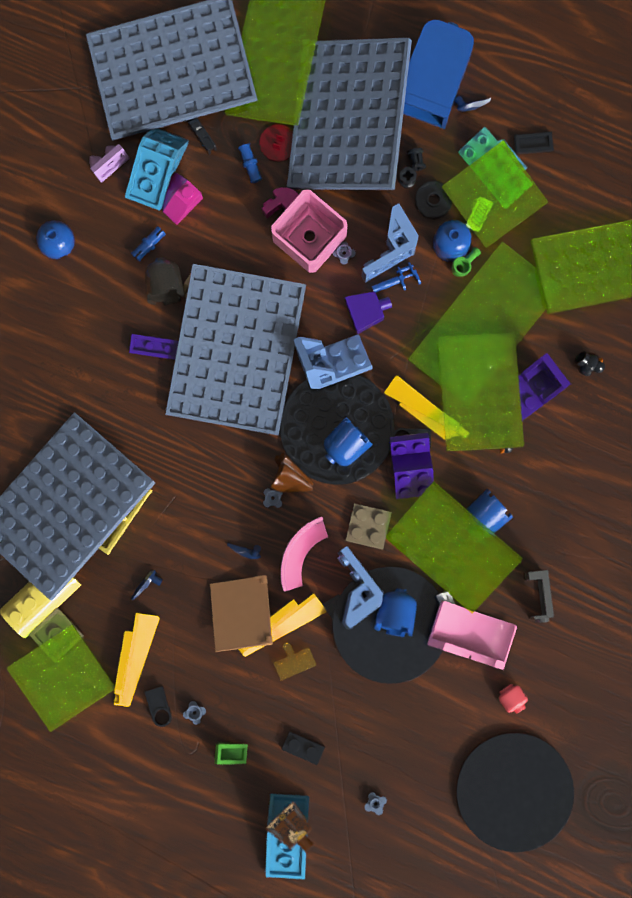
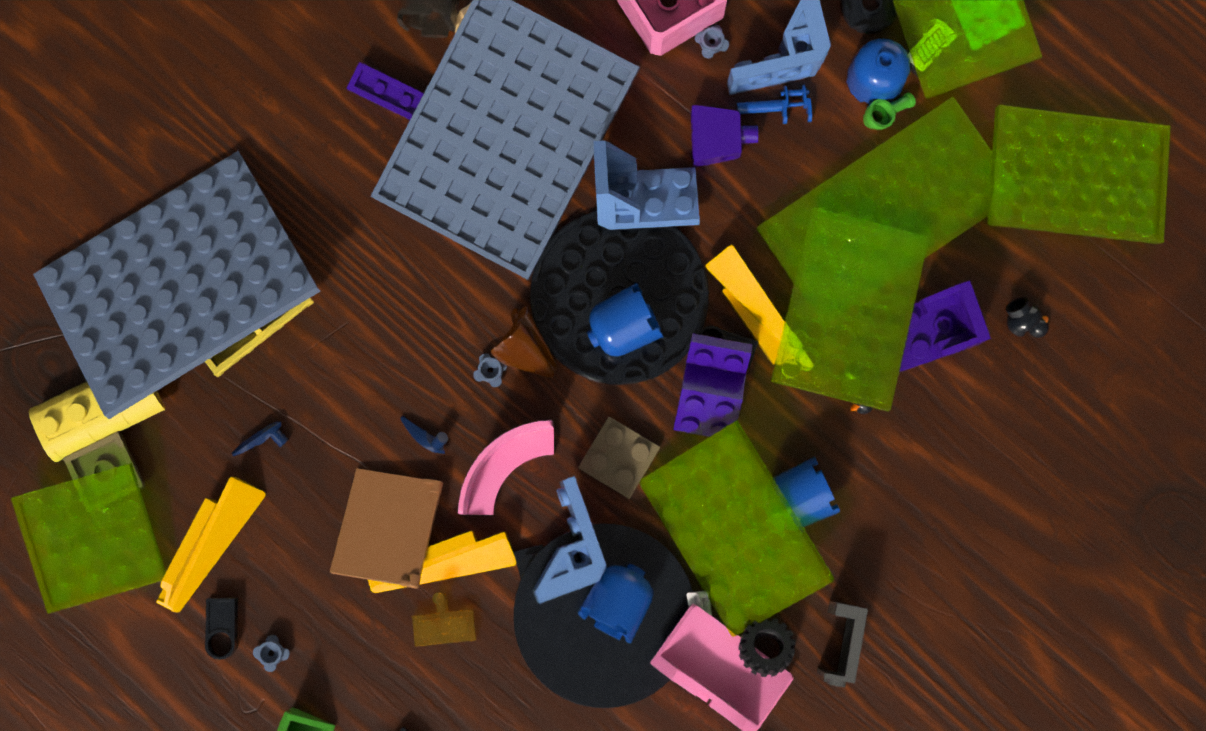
camera: 15 degrees right, 0 degrees up
(493, 624) = (764, 665): none -> black tyre

